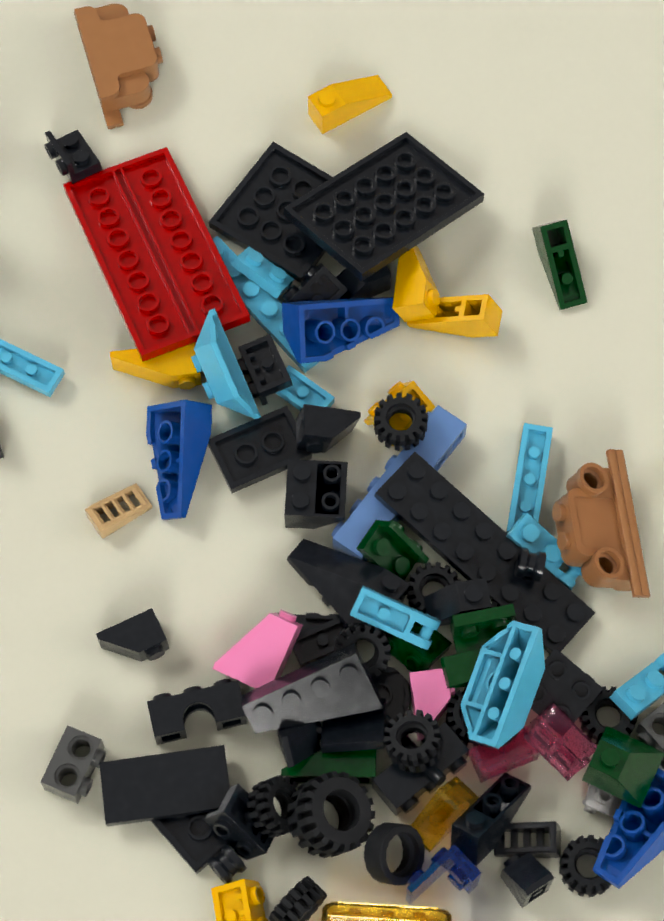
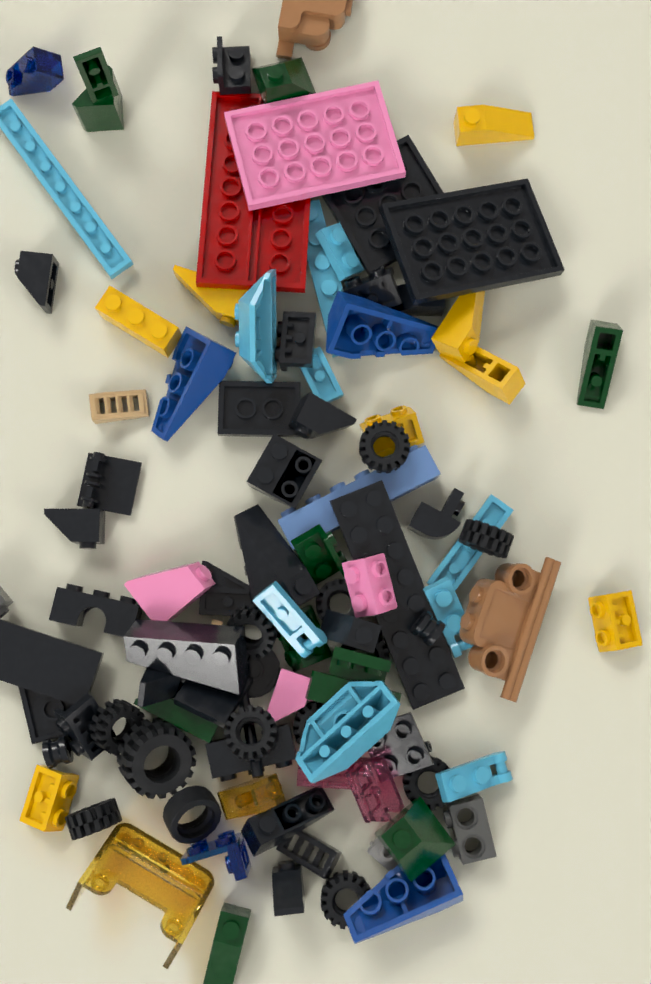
camera: 25 degrees right, 15 degrees up
(99, 421) = (138, 321): none -> yellow brick
(129, 148) = (283, 80): none -> dark green slope
(146, 585) = (109, 483): none -> black hinge
(189, 187) = (314, 145): none -> bright pink plate
(453, 551) = (369, 585): none -> bright pink bracket
(485, 474) = (434, 523): none -> black brick
(541, 458) = (486, 538): none -> black tyre

